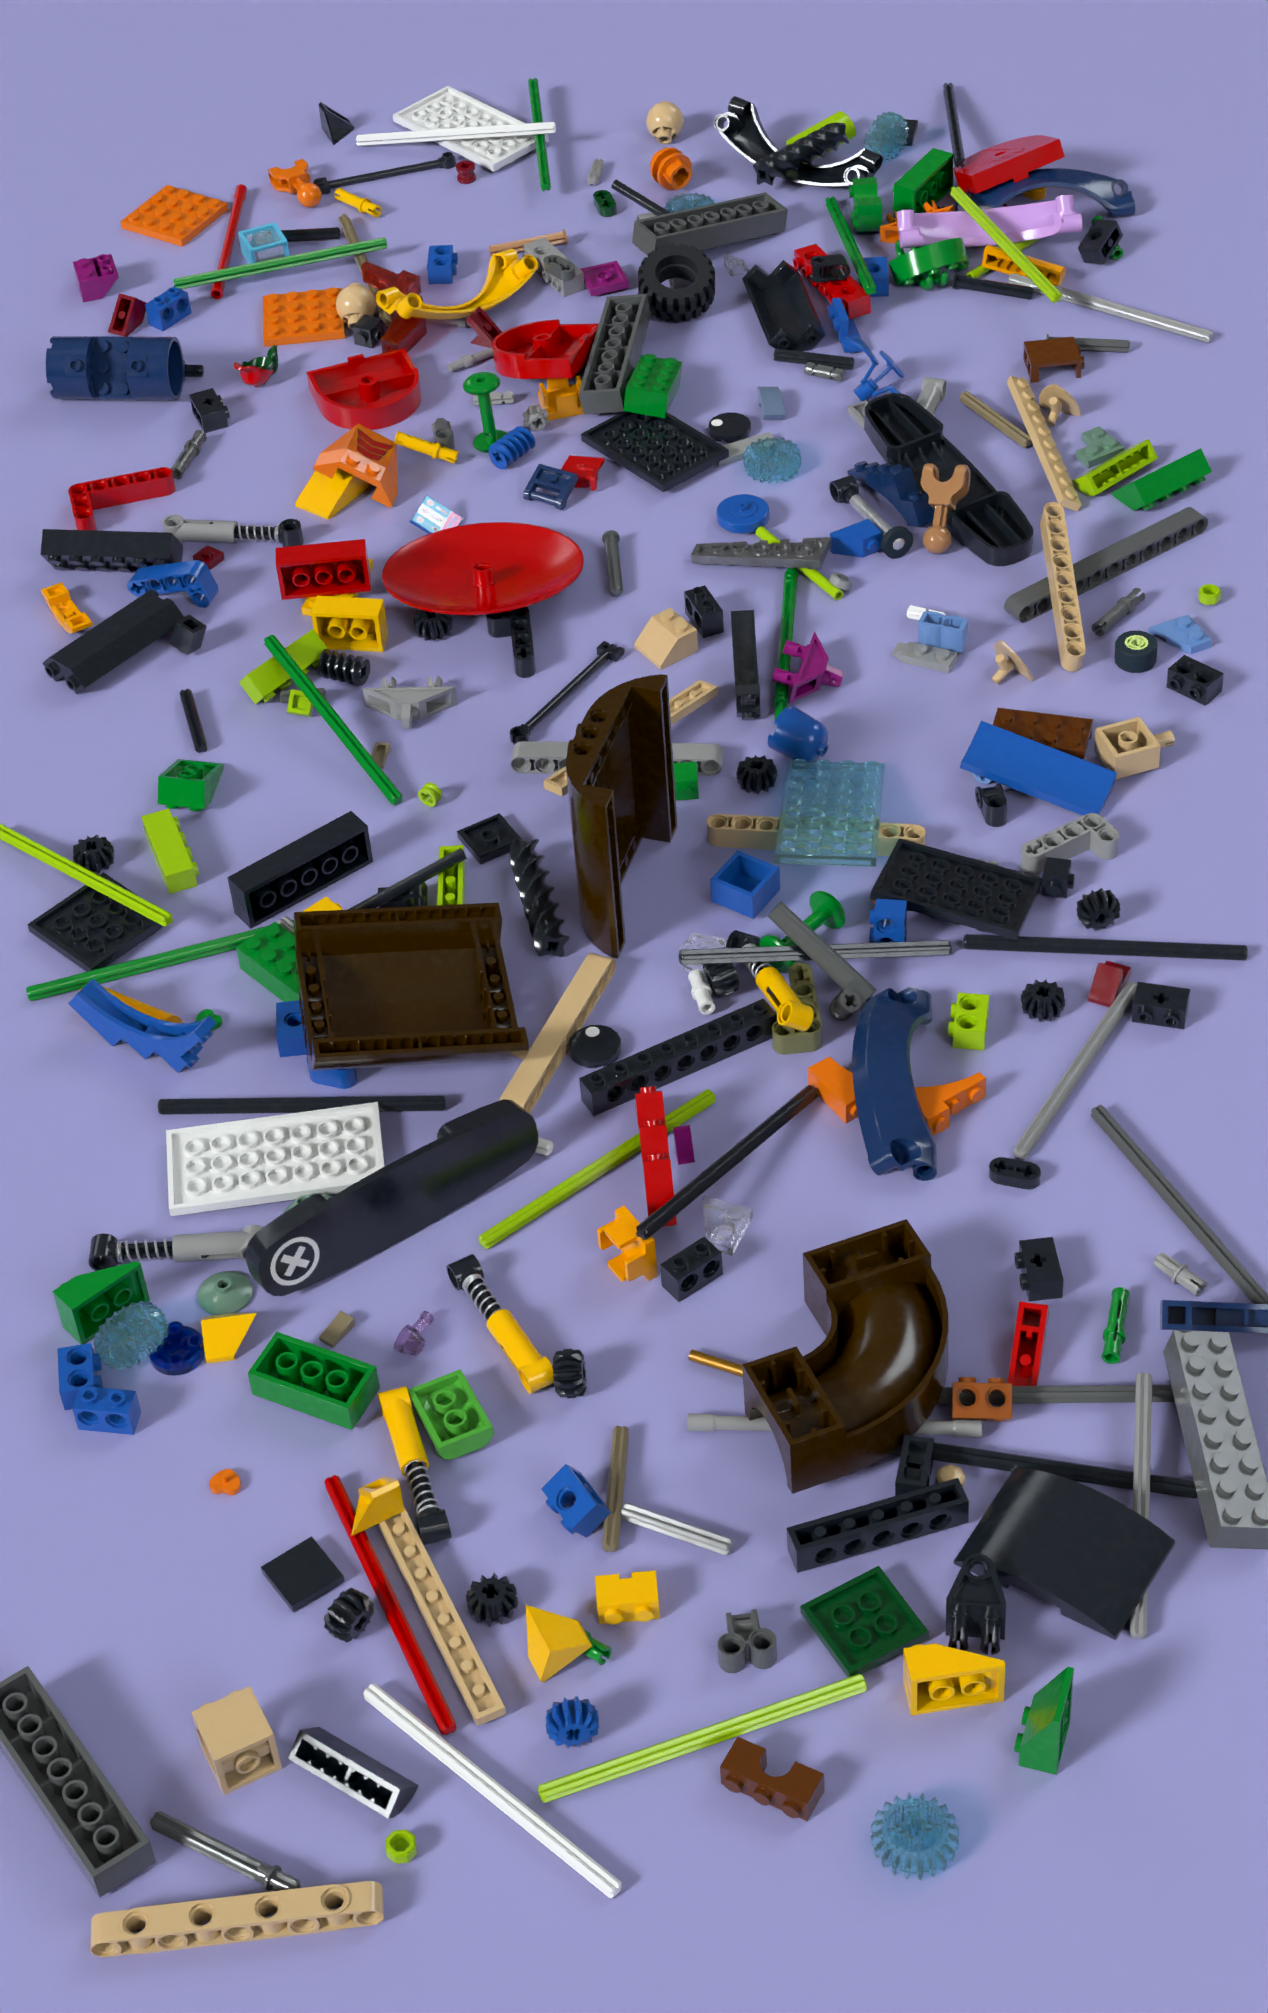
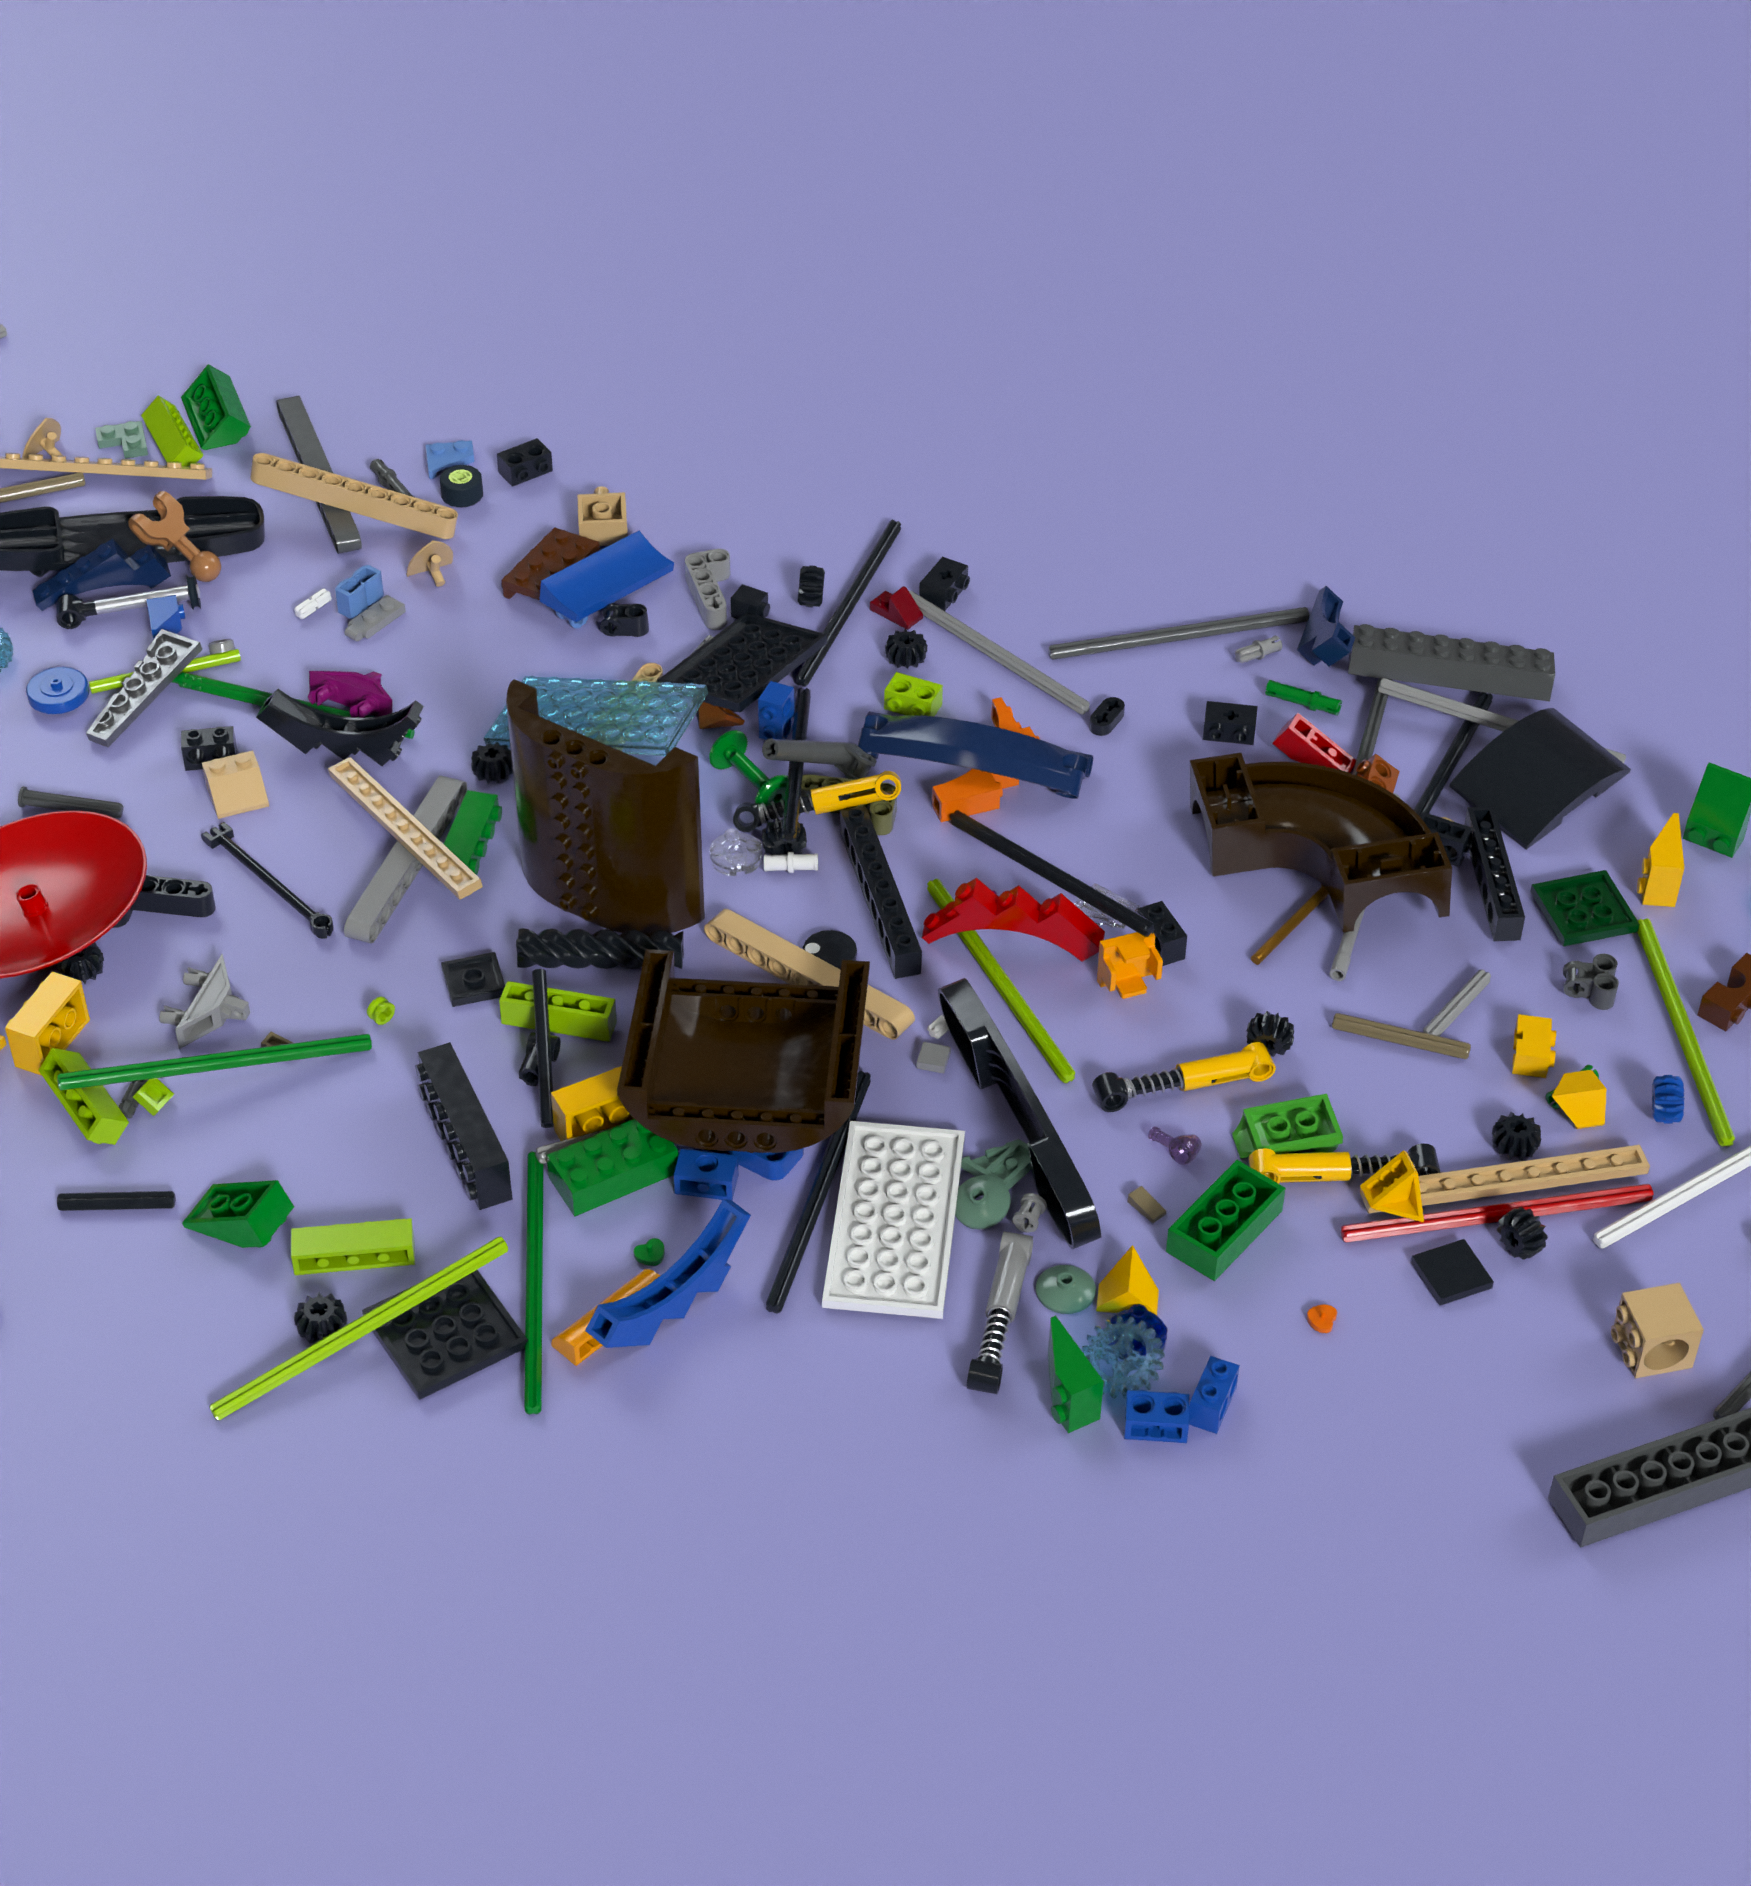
camera: 80 degrees left, 0 degrees up
(344, 667) = (114, 1045): black piece -> none
(352, 1771) = (1694, 1257): black brick -> none
(586, 1512) = (1436, 1050): blue brick -> none
(799, 735) = (462, 717): blue cylinder -> none
(976, 1607) = (1592, 833): black piece -> none
(1209, 594) = (404, 426): lime tile -> none

